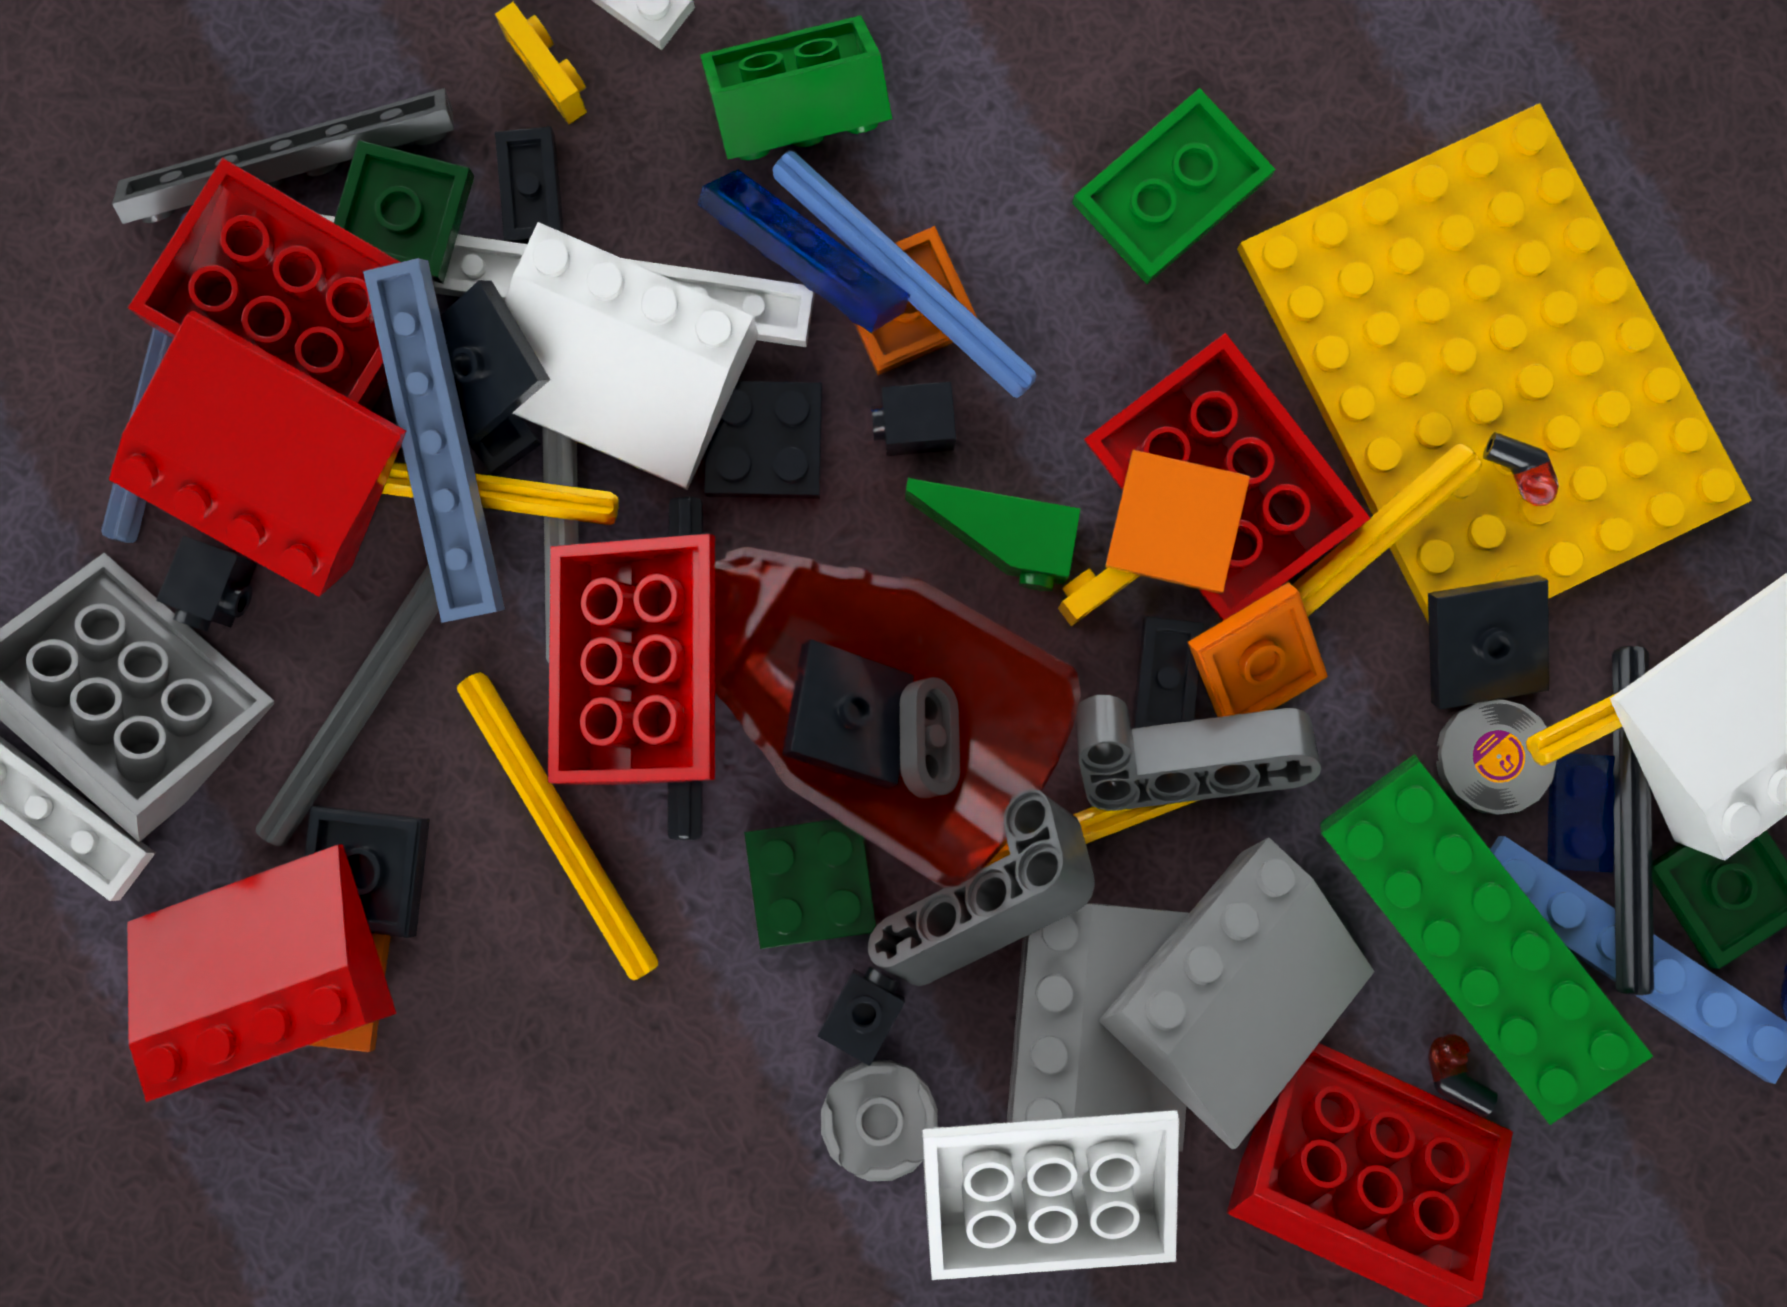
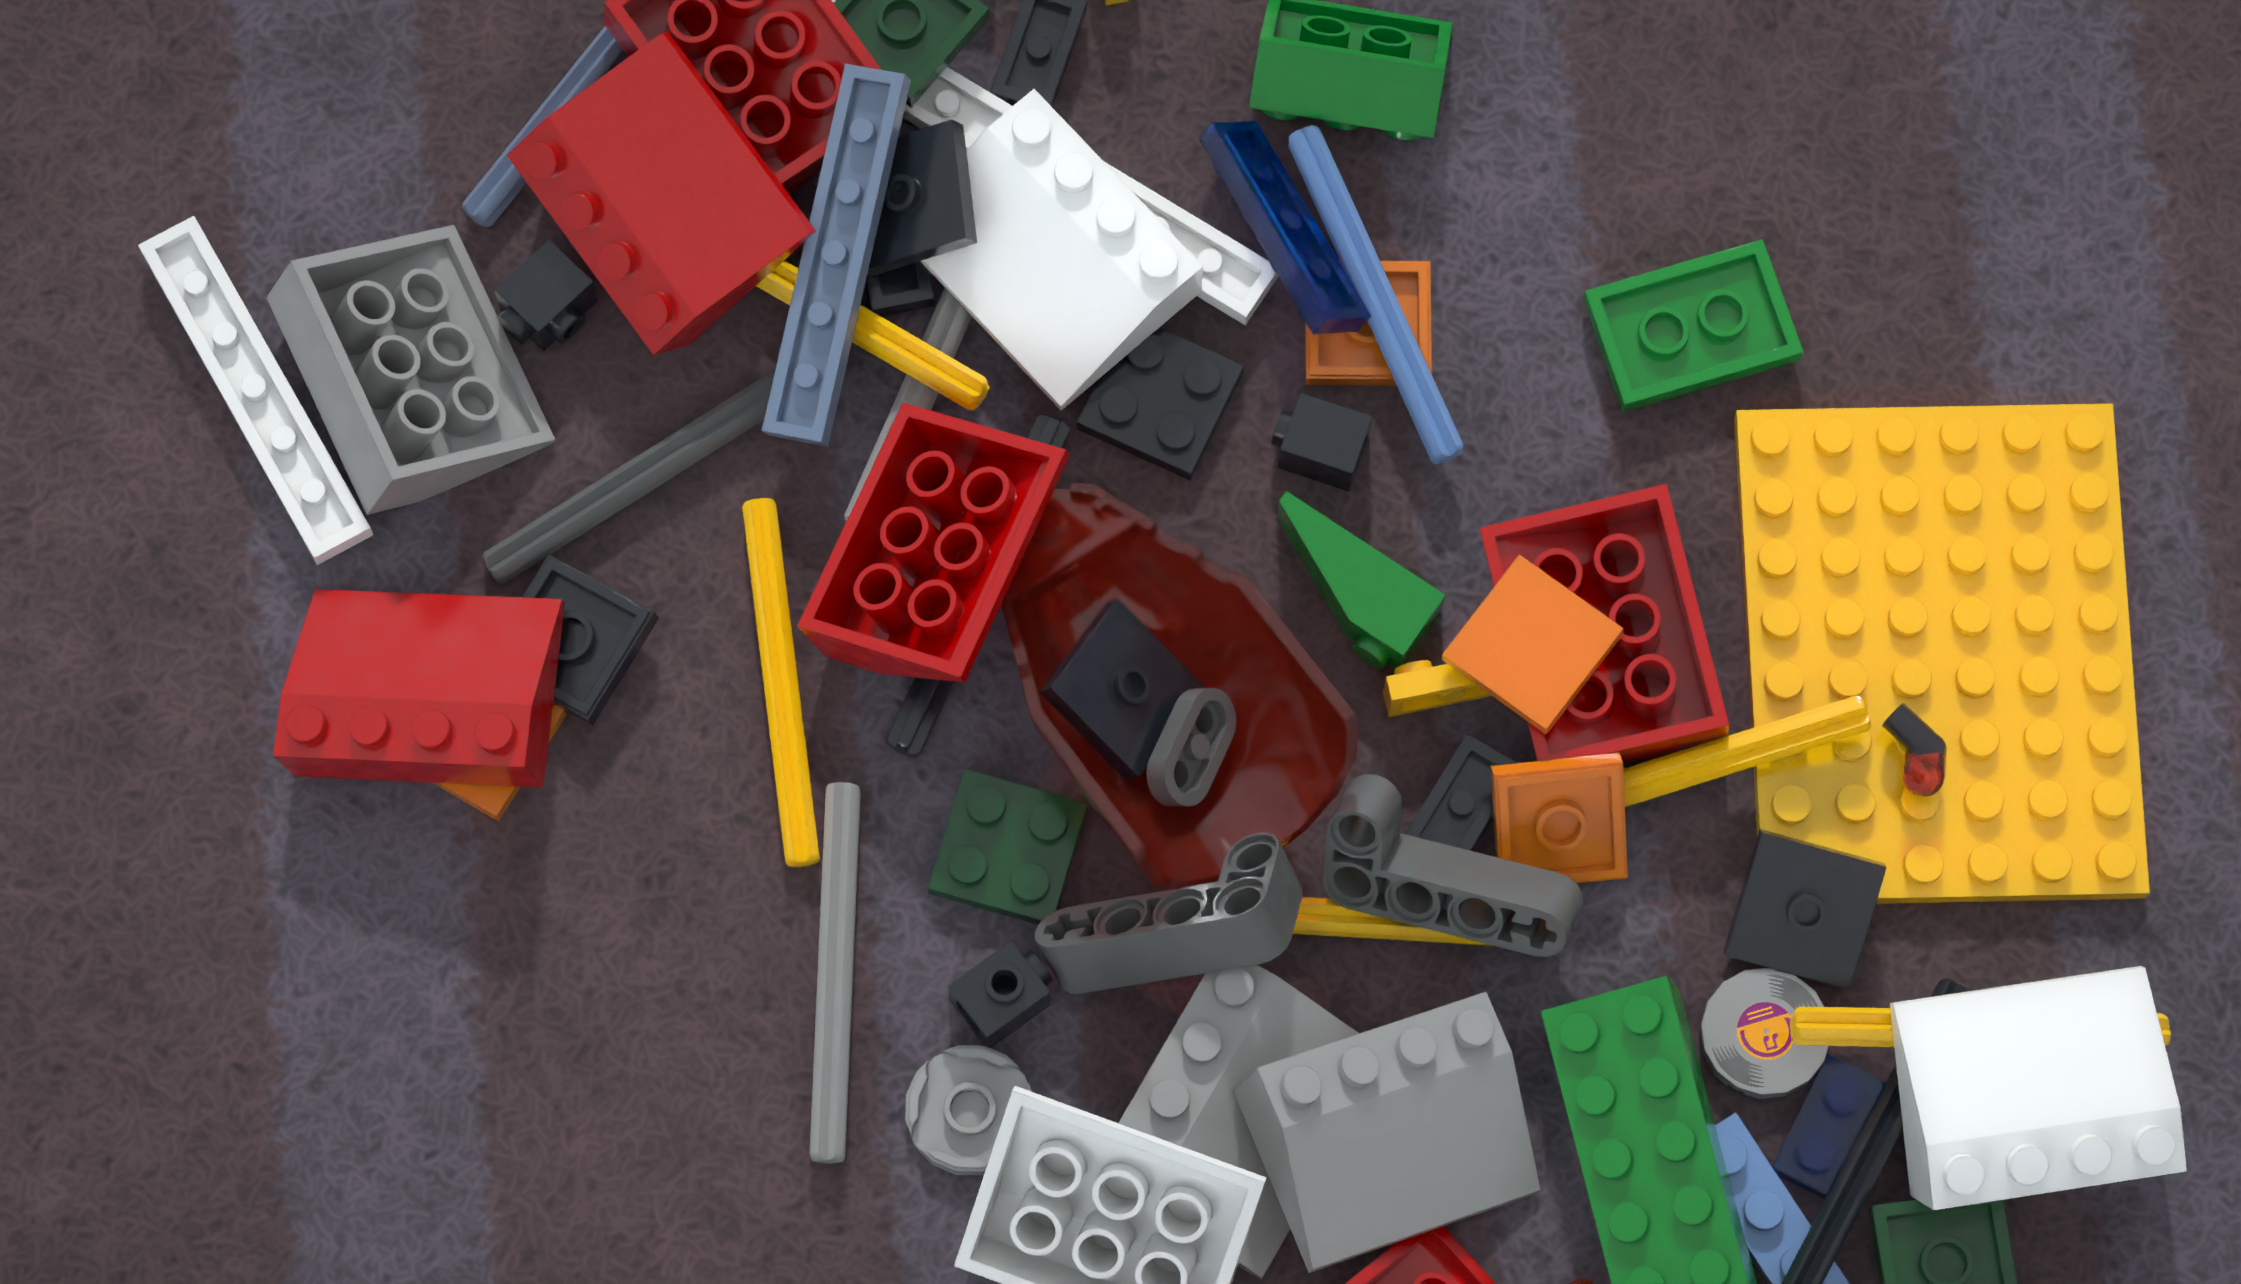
camera: 25 degrees right, 10 degrees down
(715, 1056) = (835, 973): none -> light grey axle

